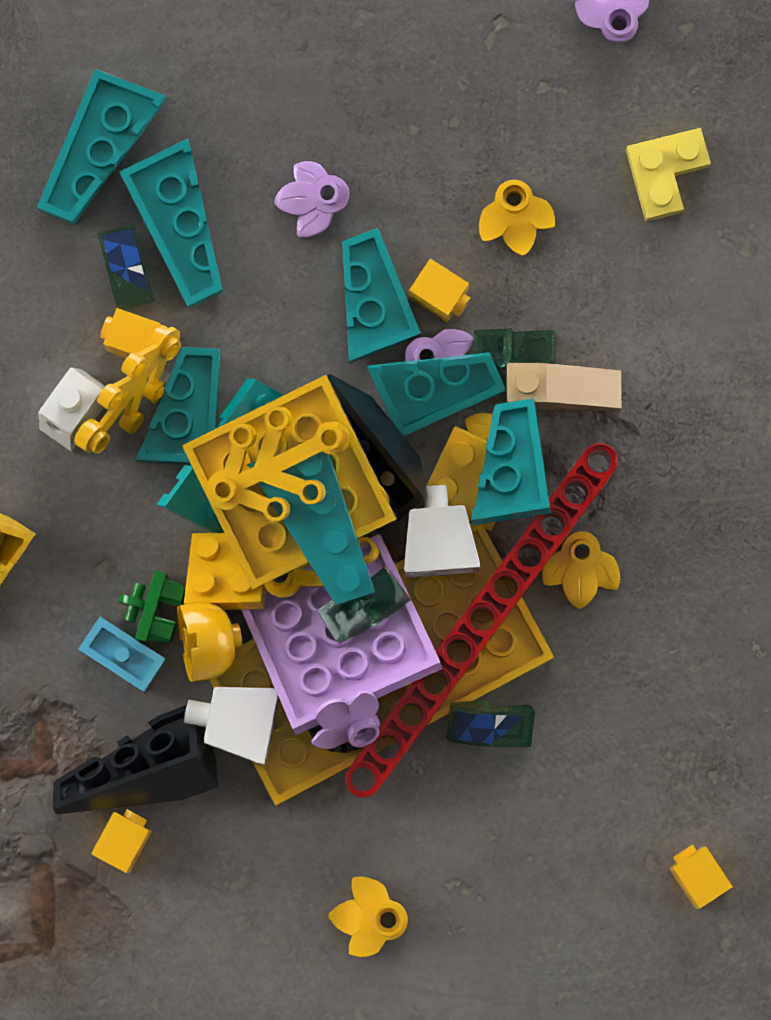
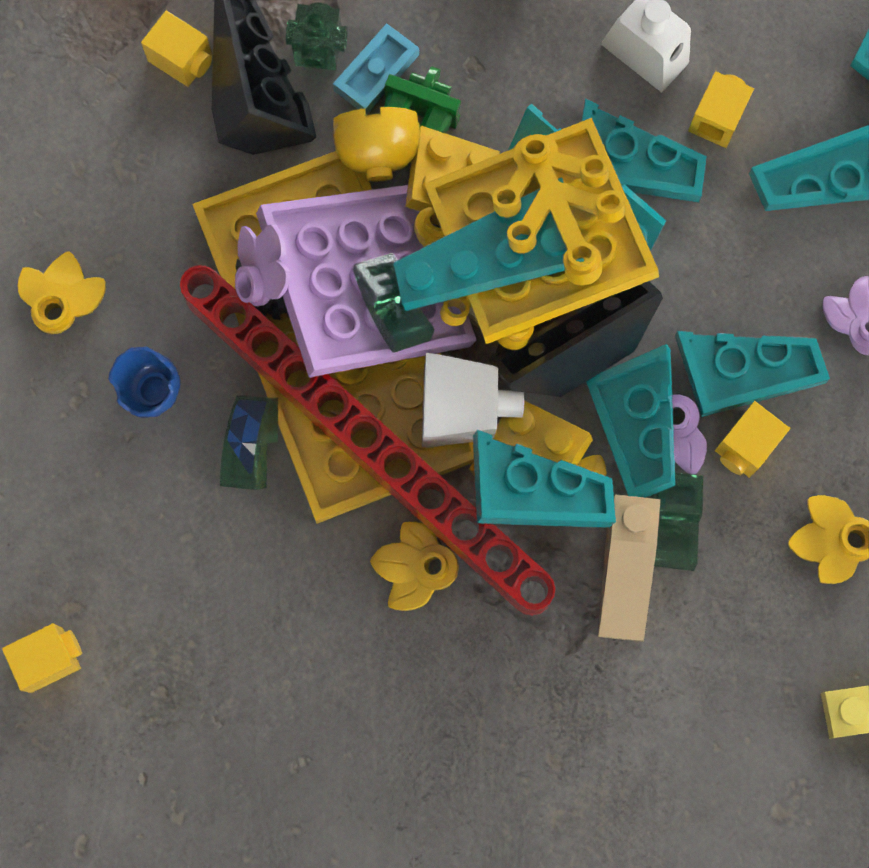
camera: 95 degrees right, 5 degrees down
(109, 722) = (316, 36): none -> clear green brick
(126, 267) = (799, 110): slope -> none
(127, 393) = (703, 123): yellow plant -> none
(237, 720) = (282, 163): white torso -> none
(448, 823) = (145, 382): none -> blue hair

